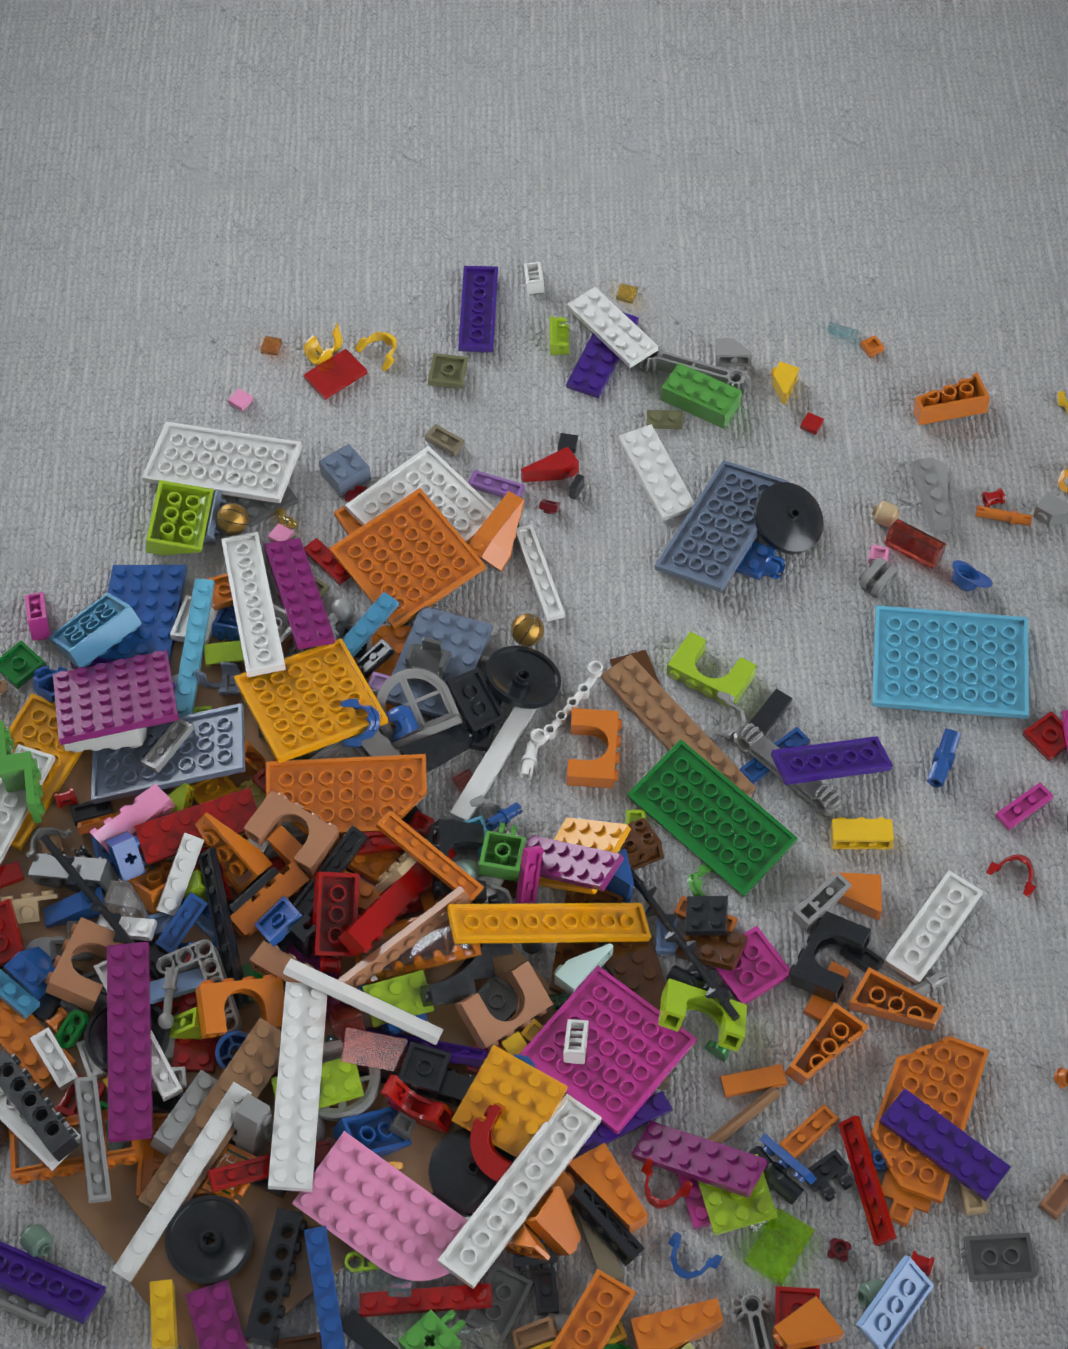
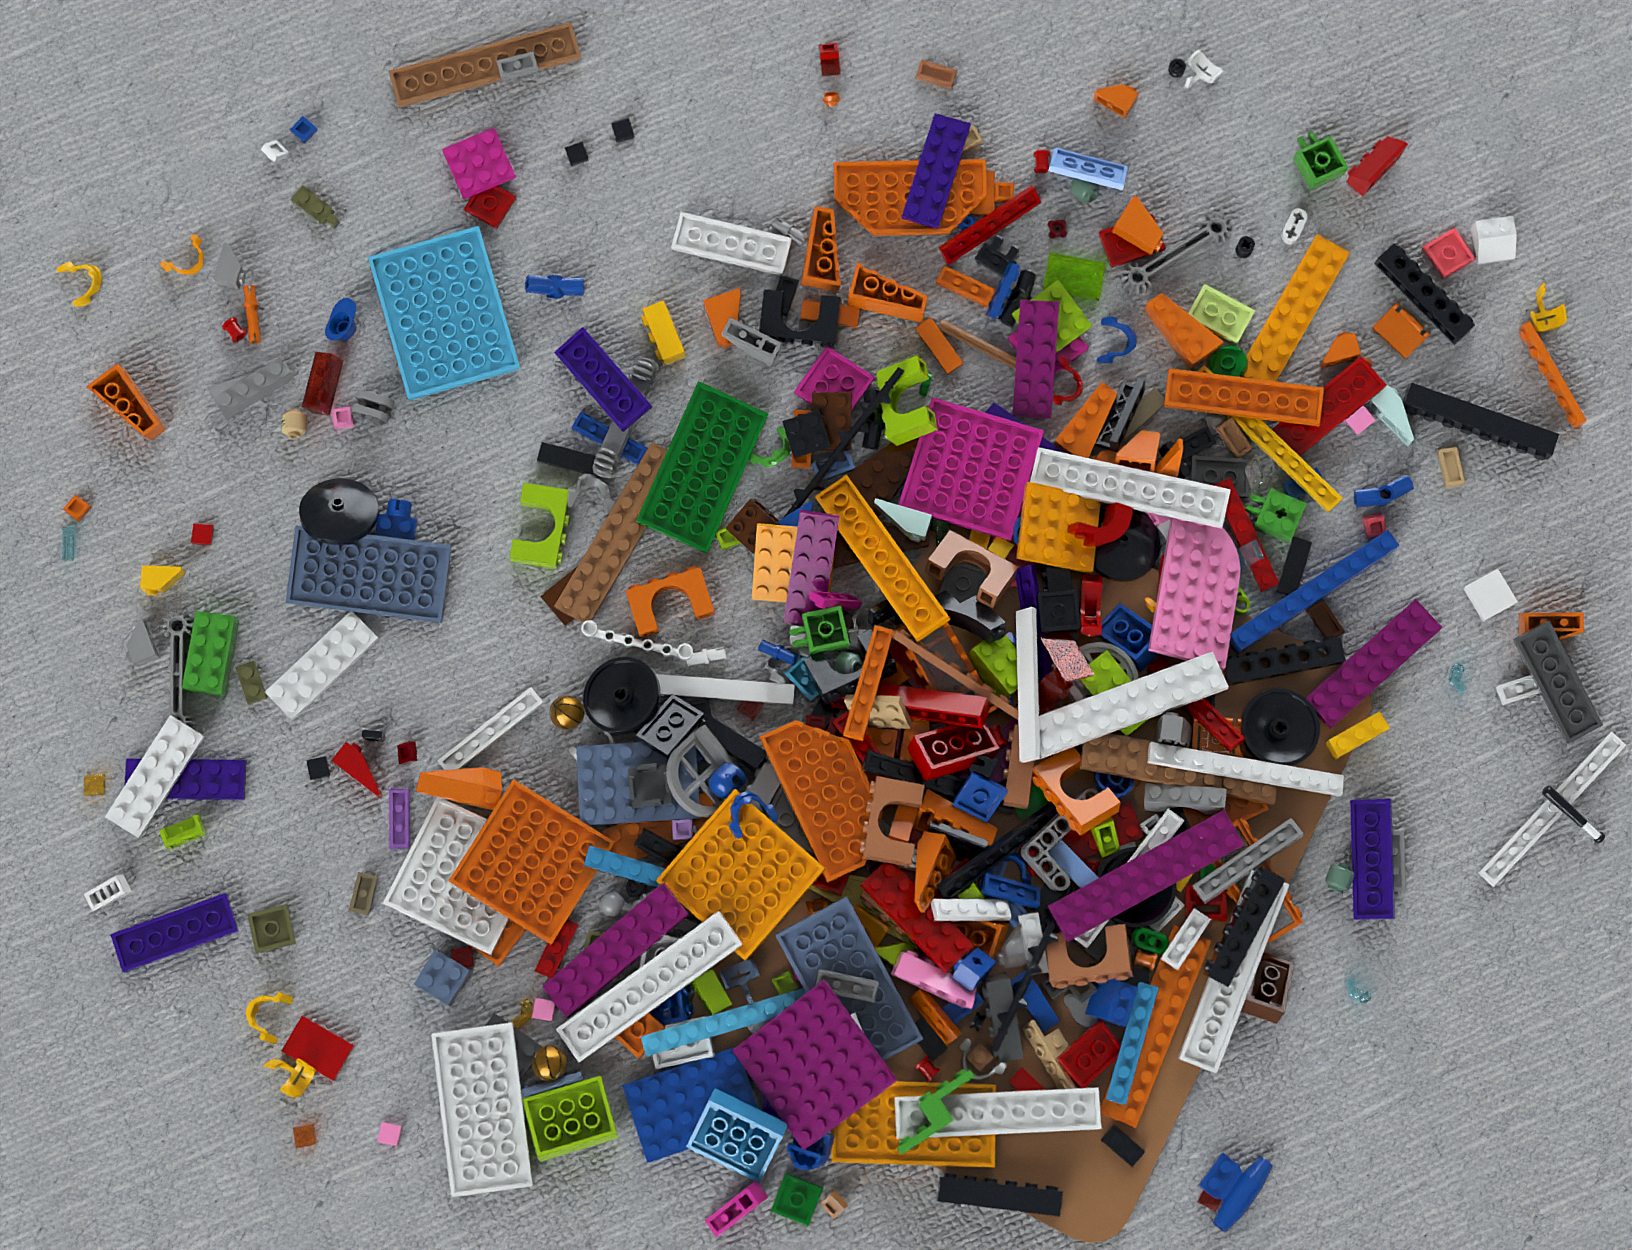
camera: 115 degrees left, 20 degrees up
(166, 1019) = (1108, 857): light grey pin -> none
(402, 1125) = (1110, 615): dark grey tile -> none
(576, 1054) = (996, 495): white slope -> none
(999, 1257) = (1010, 104): dark grey plate -> none
(1024, 806) = (577, 203): dark pink plate -> none
(1029, 887) = (633, 188): red helmet -> none

